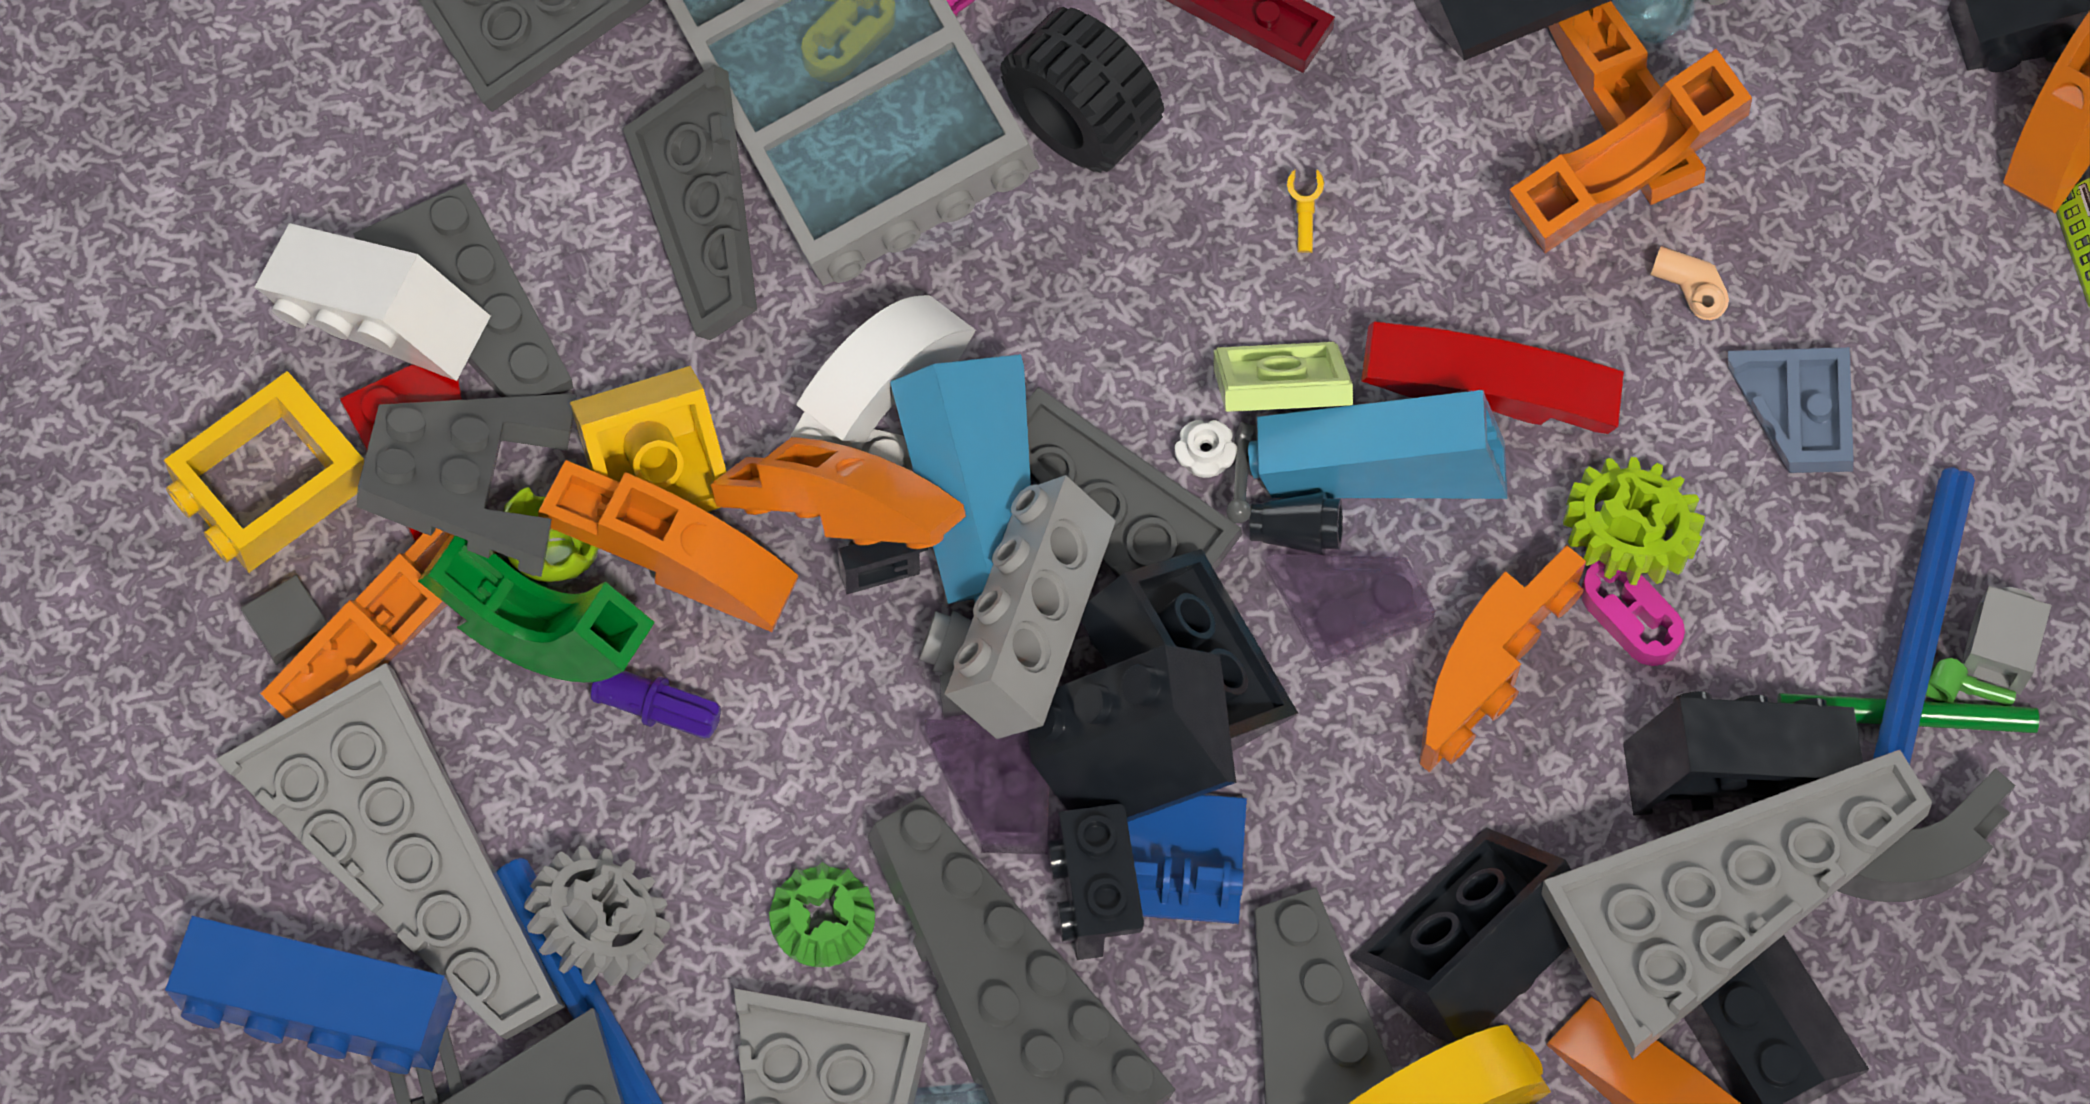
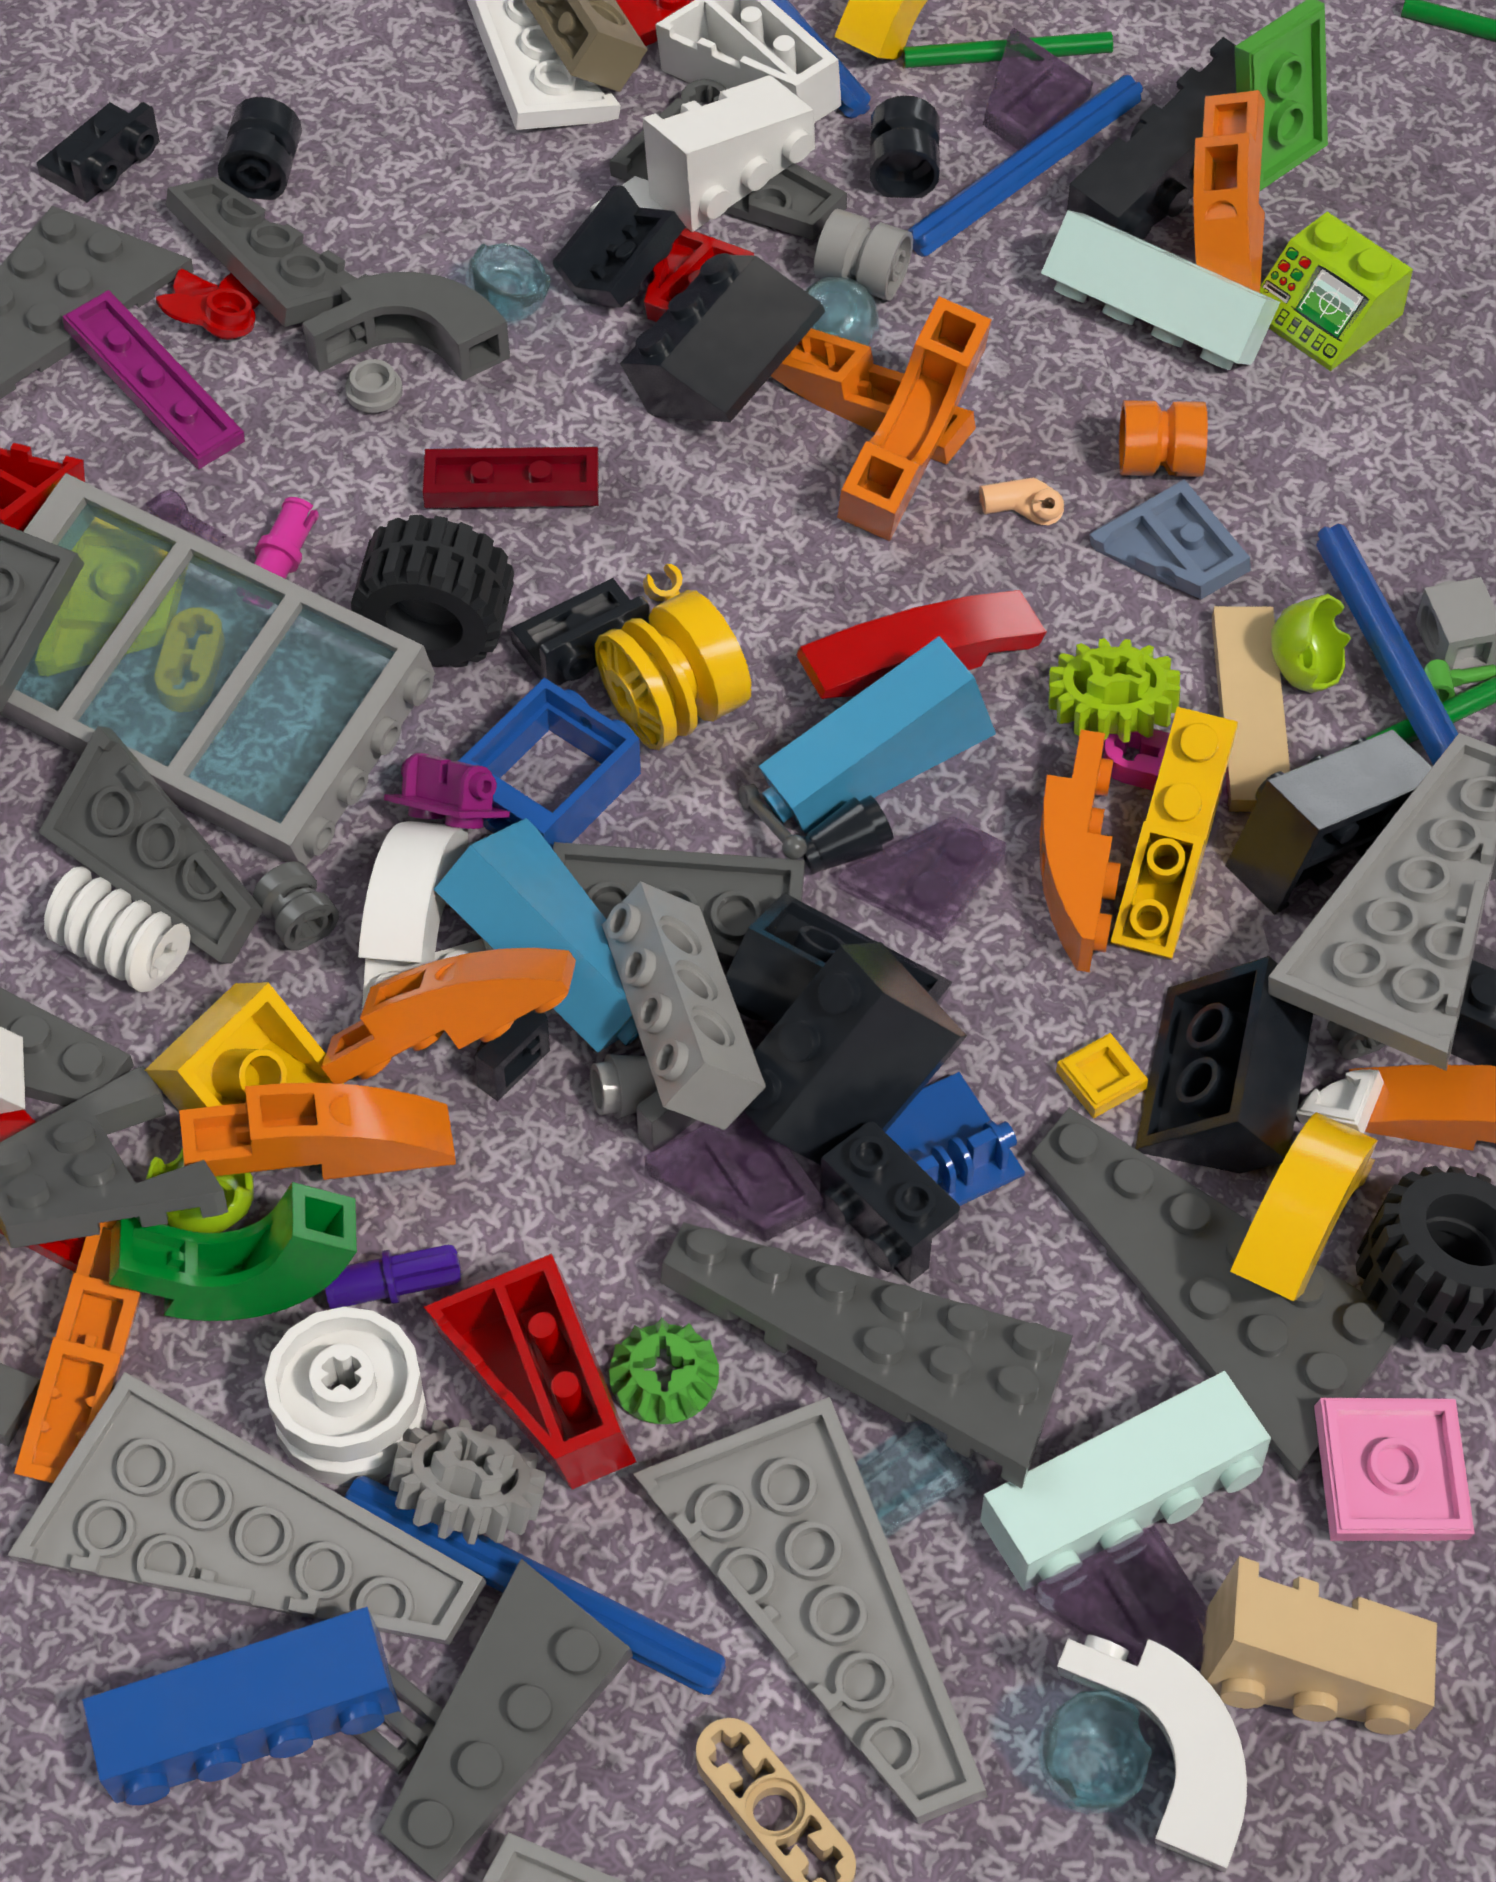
camera: 30 degrees left, 10 degrees down
(548, 783) = (344, 1394): none -> white wheel
(623, 258) = (114, 930): none -> white piece
(718, 856) = (539, 1366): none -> red wedge
(788, 320) = (292, 901): none -> dark grey wheel
(972, 290) = (448, 788): none -> magenta hinge
(1064, 266) = (576, 722): none -> blue window
(1199, 196) = (563, 638): none -> black bracket
(1200, 462) = (725, 834): white plate -> none
(1243, 281) = (673, 669): none -> yellow wheel
(1282, 376) = (755, 727): yellowish green tile -> none
(1369, 874) = (1101, 1075): none -> yellow tile
(1558, 1026) = (1346, 1100): none -> white tile
(1585, 693) = (1175, 833): none -> yellow slope
(1758, 600) = (1252, 696): none -> tan tile
(1847, 579) = (1309, 643): none -> lime hair
(1863, 295) = (1163, 438): none -> orange wheel
(1970, 137) = (1160, 289): none -> light aqua brick

